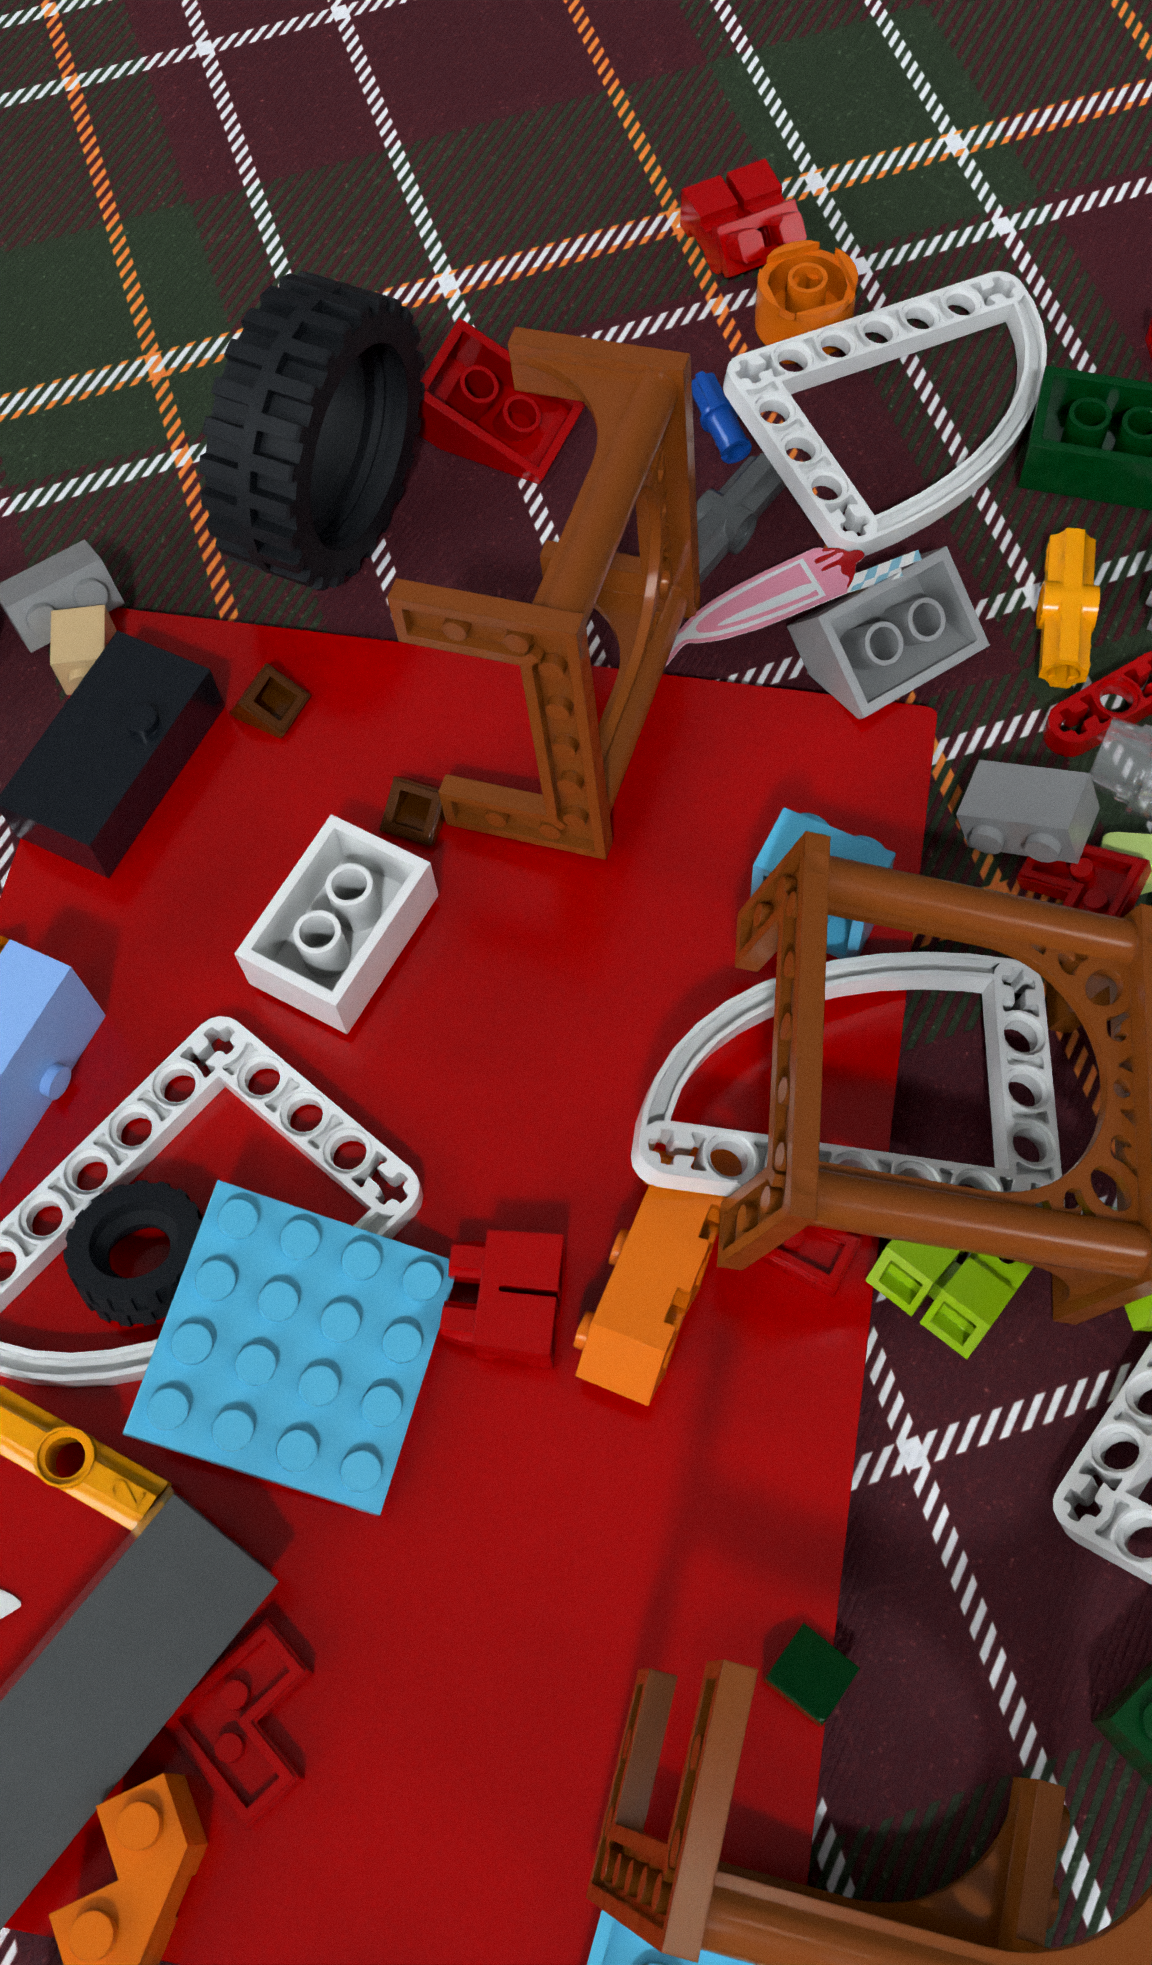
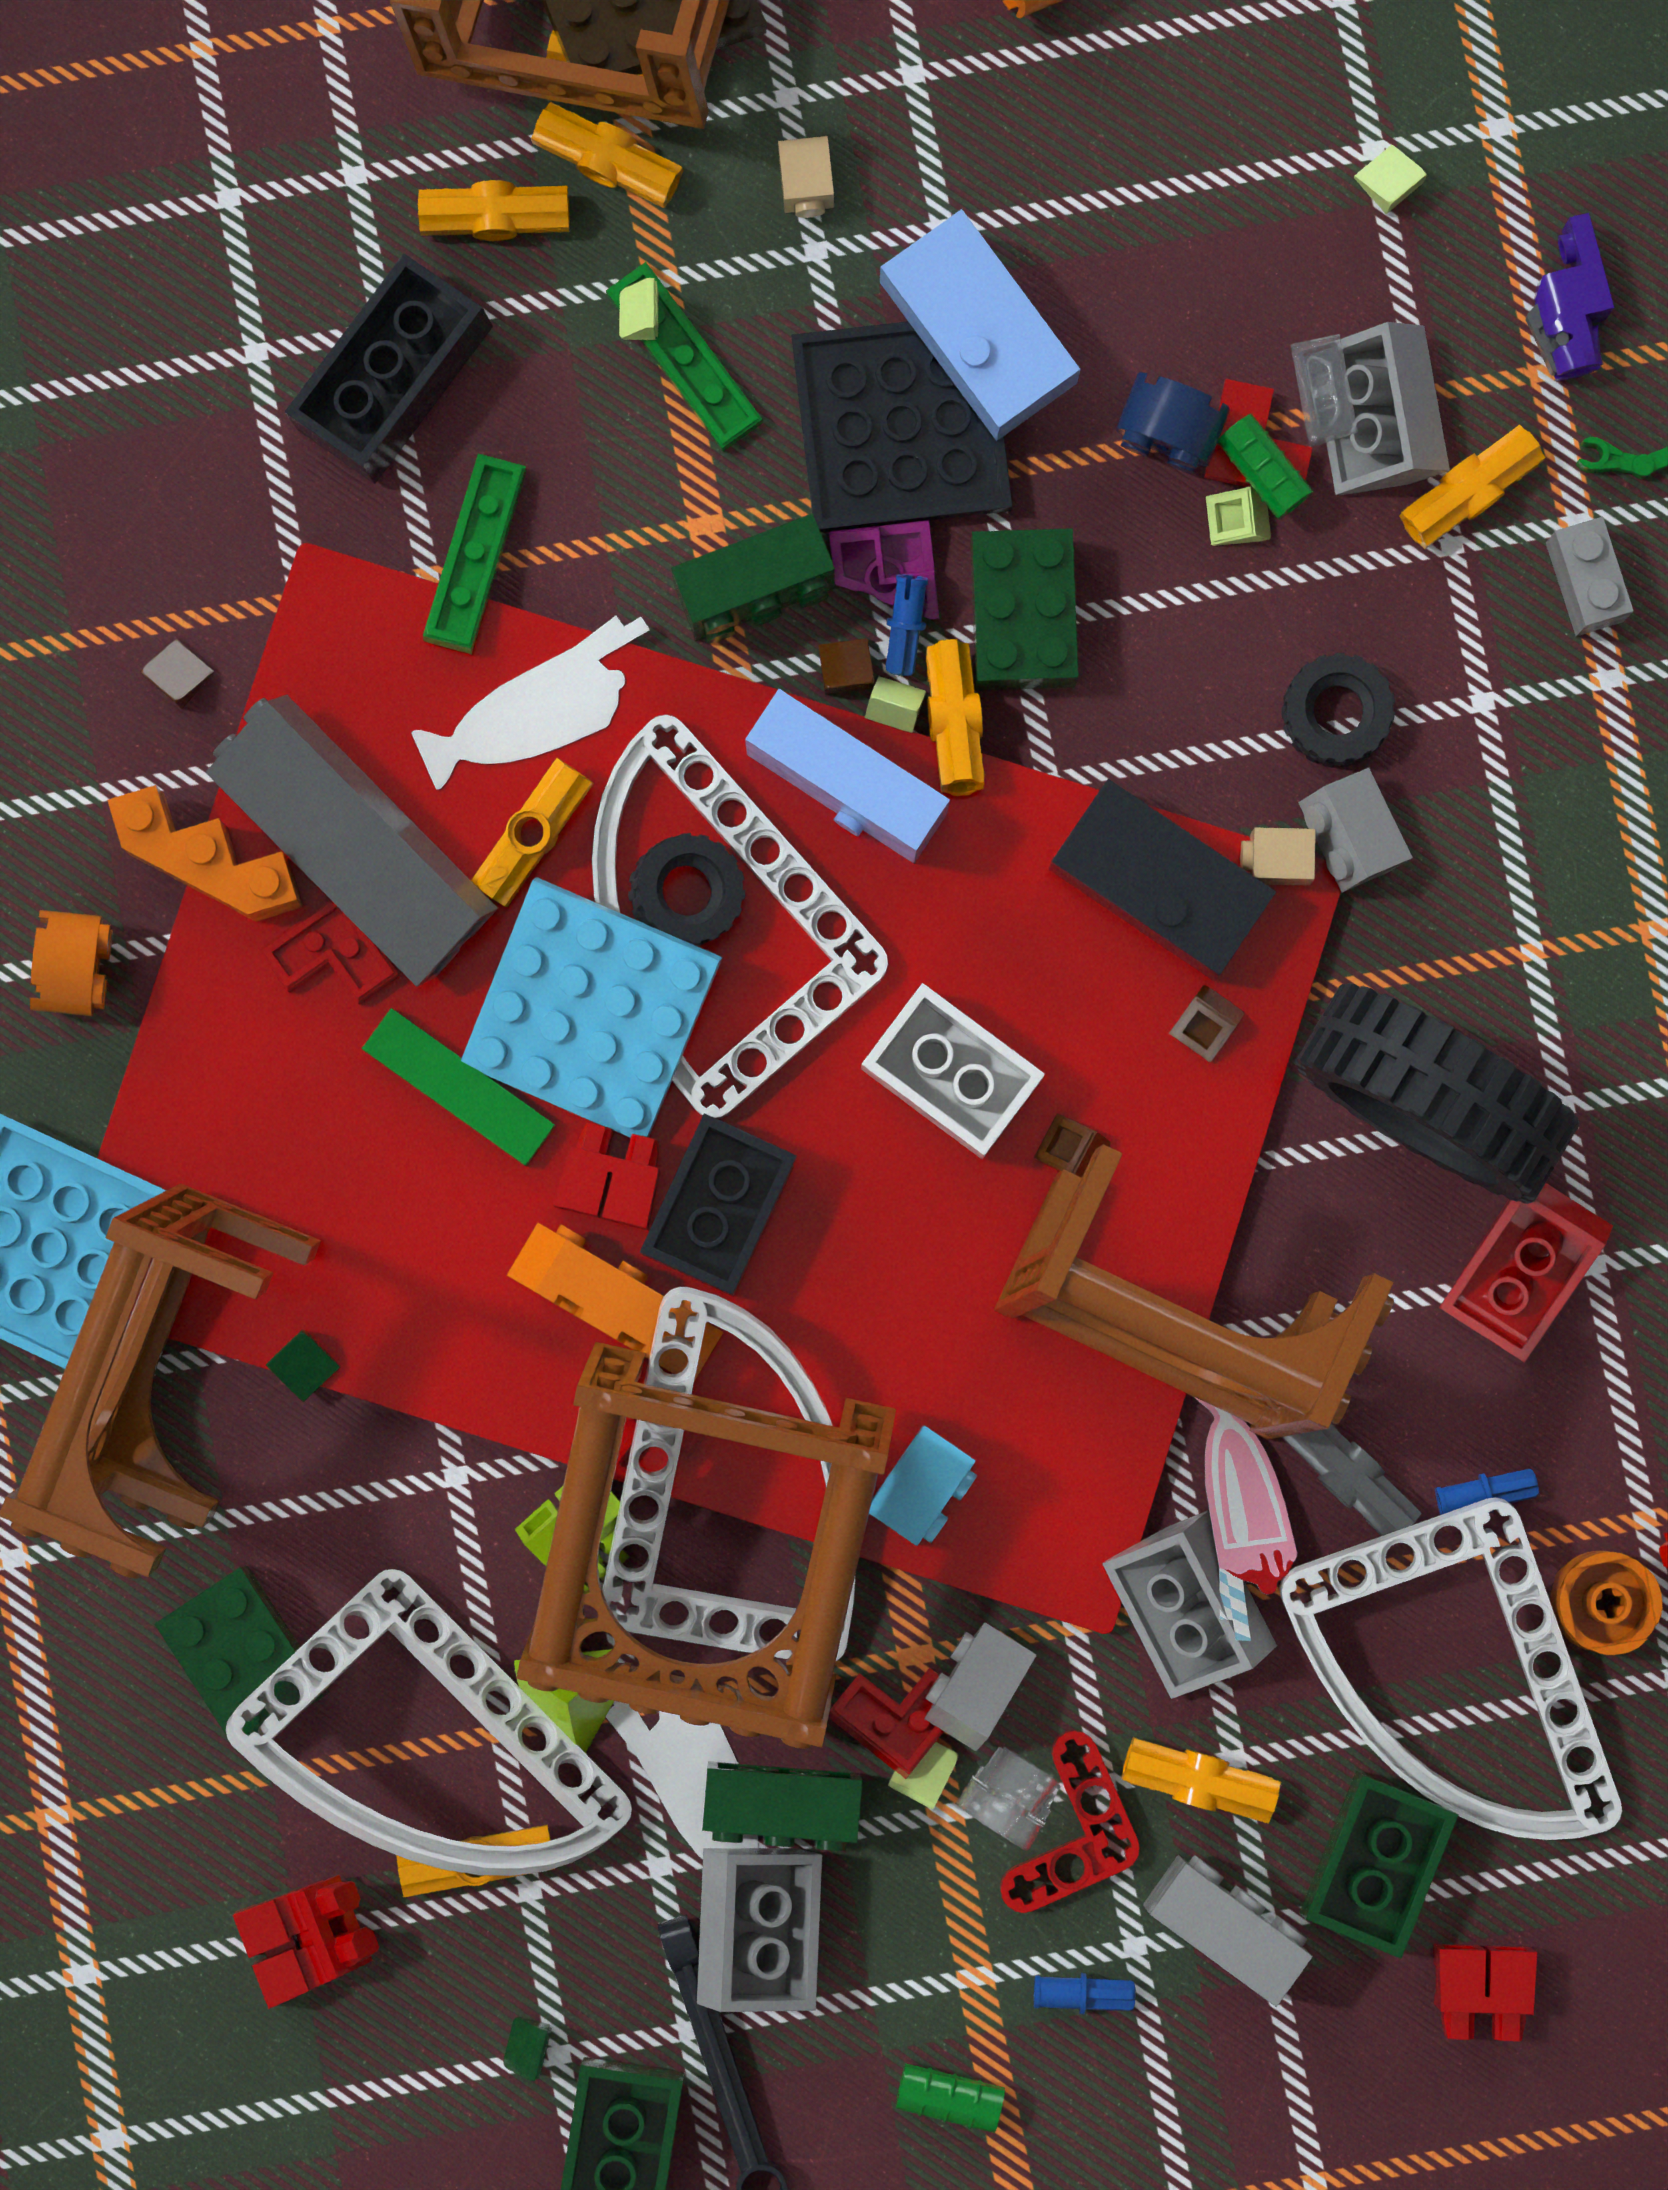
camera: 90 degrees right, 20 degrees up
(410, 1517) = (458, 1087): none -> green tile
(524, 1155) = (718, 1205): none -> black brick

